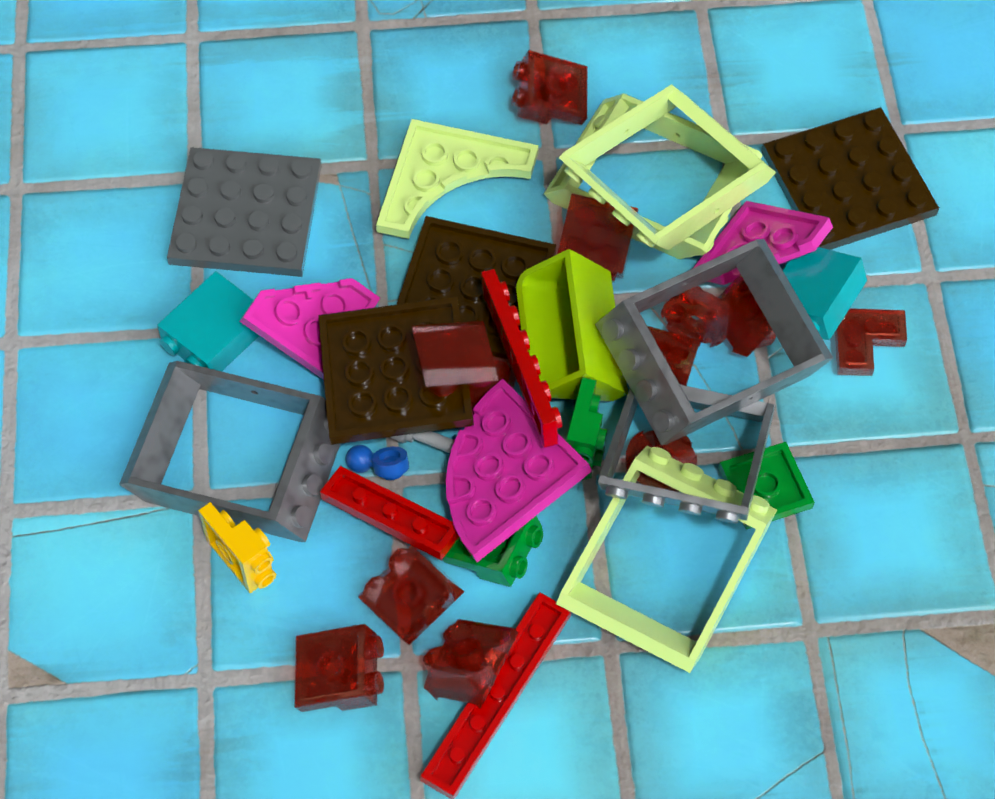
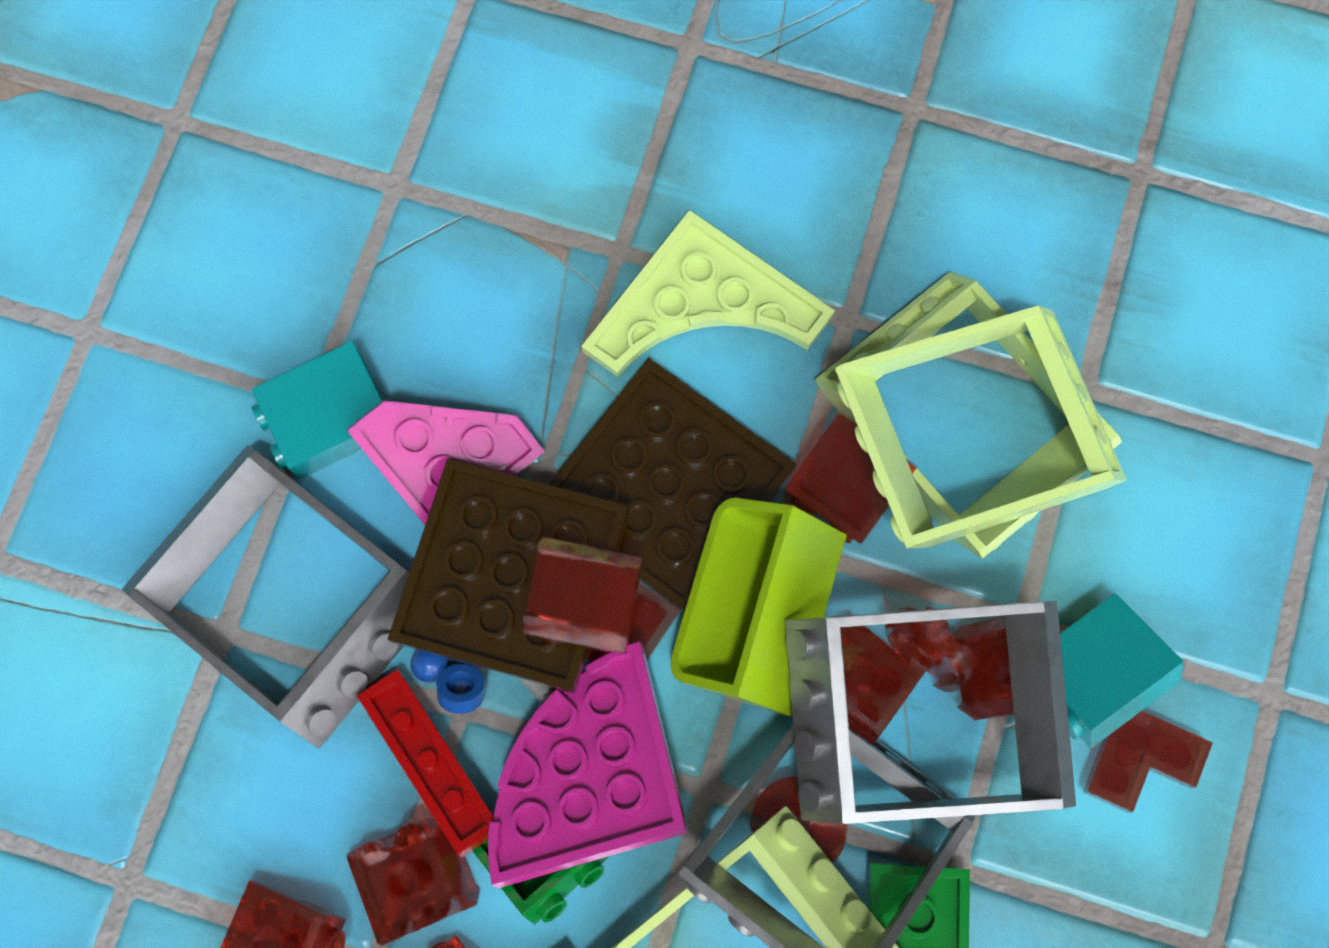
camera: 25 degrees right, 15 degrees up
(239, 547) = (221, 753): yellow plate -> none
(245, 212) = (434, 260): dark grey plate -> none
(525, 367) = (668, 647): red plate -> none
(550, 89) = (886, 233): clear red plate -> none
(585, 428) = (708, 767): green plate -> none
(784, 230) = (1066, 560): dark pink plate -> none
(853, 175) = (1226, 513): dark brown plate -> none

